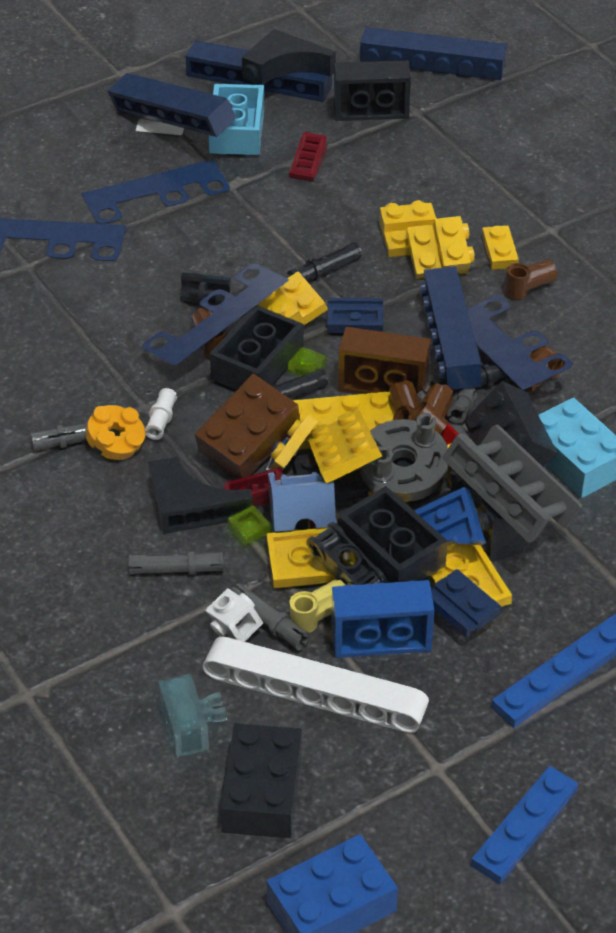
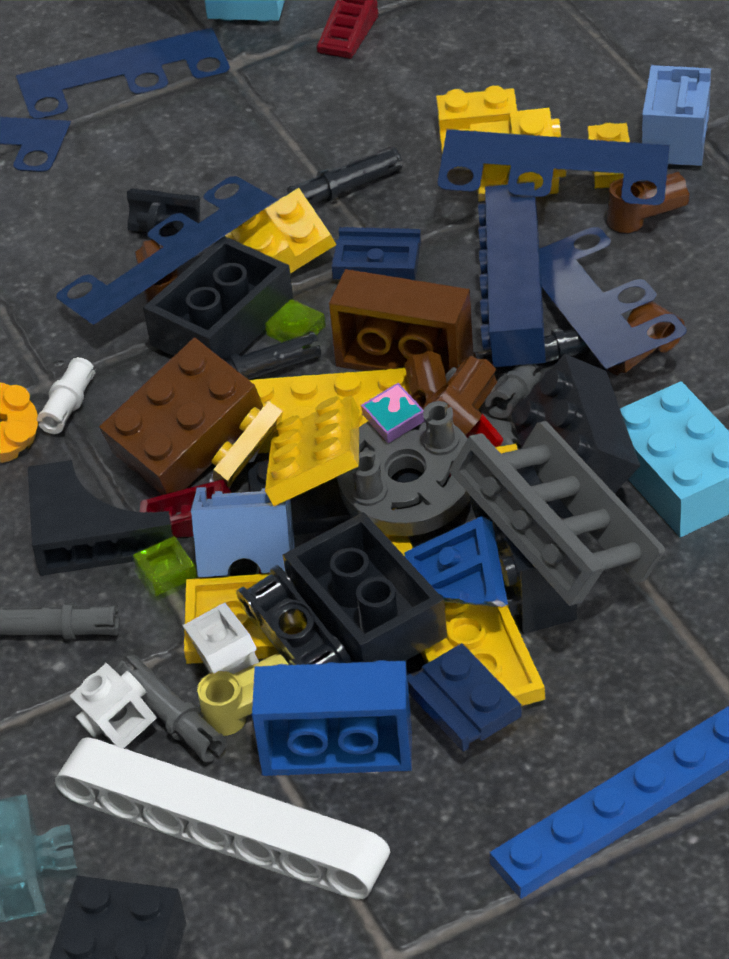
camera: 10 degrees right, 0 degrees up
(300, 571) = (222, 641): none -> white slope
(392, 421) = (393, 412): none -> tile
(462, 247) = (547, 153): none -> dark blue piece
(543, 220) = (677, 112): none -> medium blue piece

